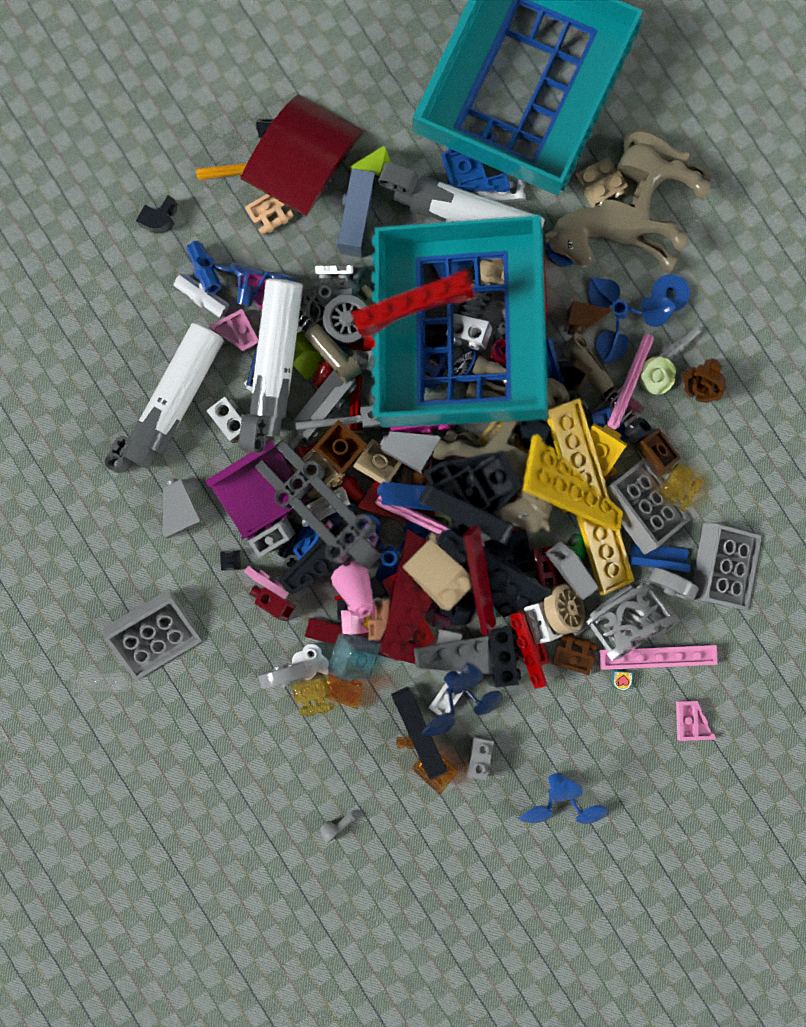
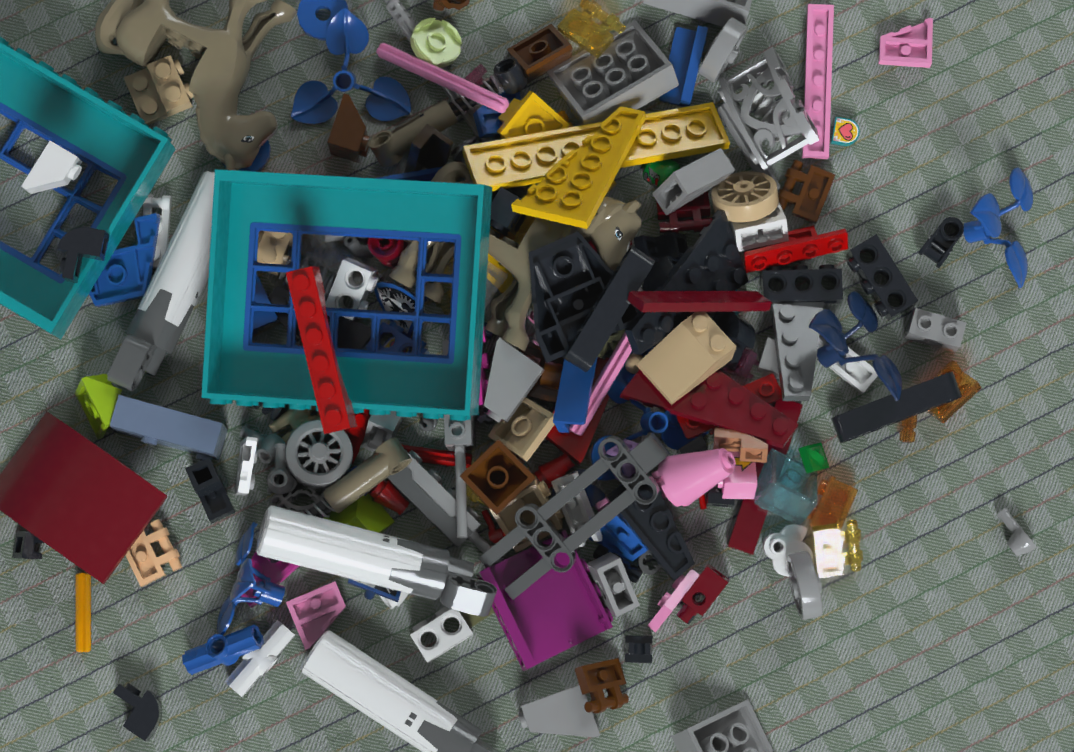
camera: 85 degrees left, 5 degrees down
(205, 532) = (599, 677): none -> reddish brown plate
(320, 246) = (210, 490): none -> black brick
(377, 675) = (813, 458): none -> green tile
(476, 126) = (81, 243): none -> black brick
(525, 714) = (882, 264): none -> black brick
(530, 101) = (52, 170): none -> white slope
(545, 757) = (939, 244): none -> black piece

